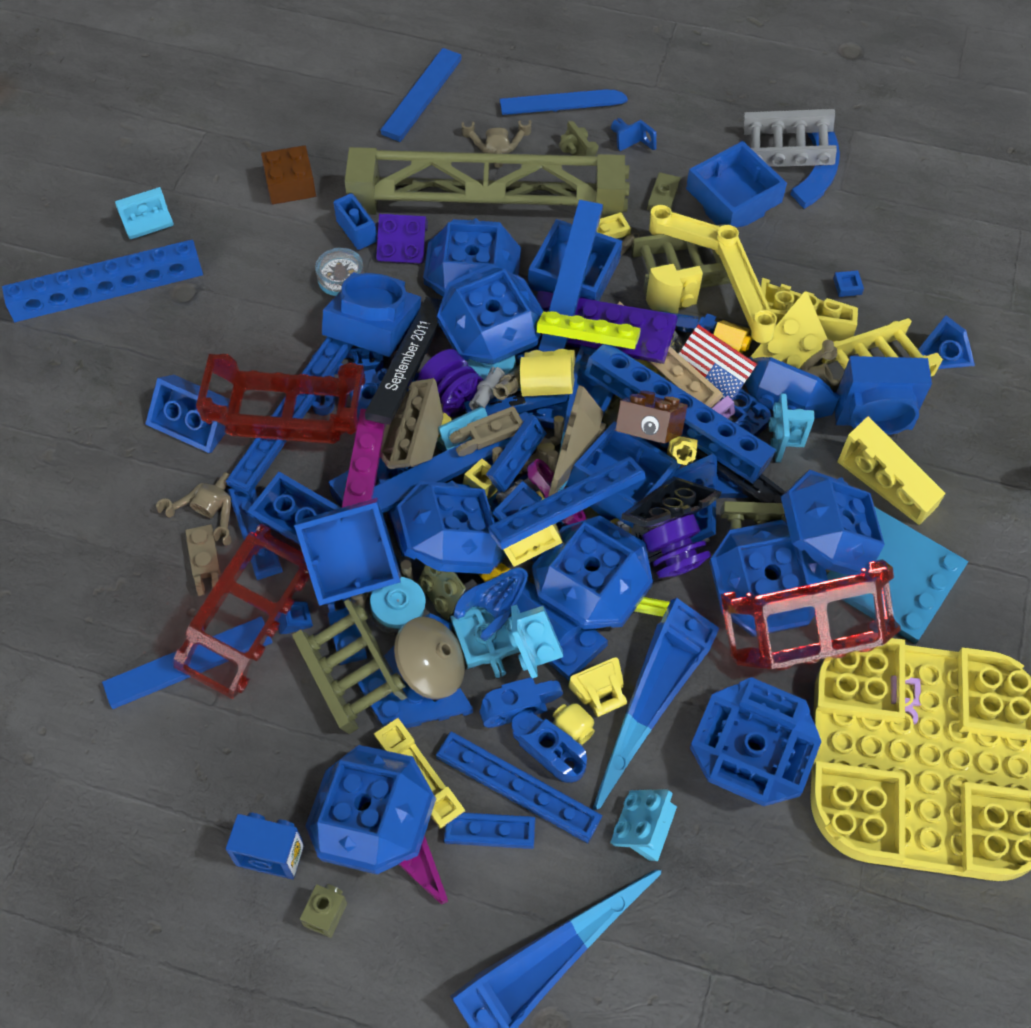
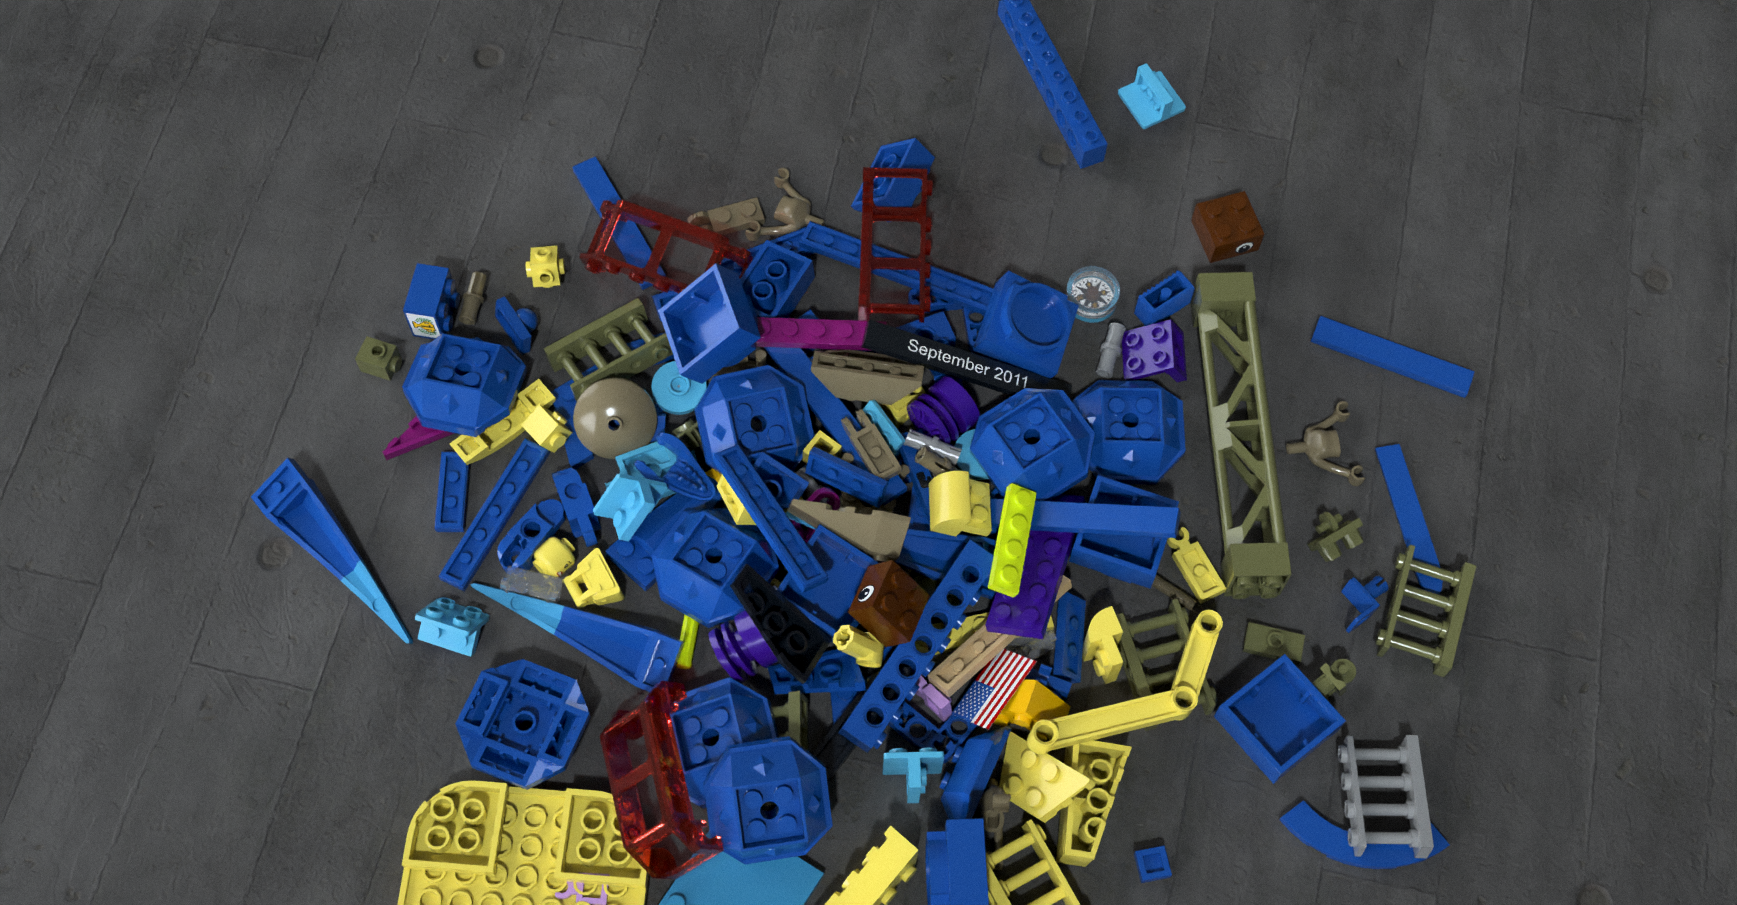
camera: 85 degrees right, 5 degrees up
(236, 729) = (545, 266): none -> light yellow brick
(245, 805) = (473, 298): none -> dark tan axle
(300, 762) = (516, 324): none -> blue tile
(395, 266) = (1110, 350): none -> light grey pin
(432, 725) = (547, 428): none -> light yellow brick
(602, 744) = (532, 584): none -> clear hinge
(646, 85) = (1447, 630): none -> olive fence
(699, 151) = (1336, 678): none -> olive hips

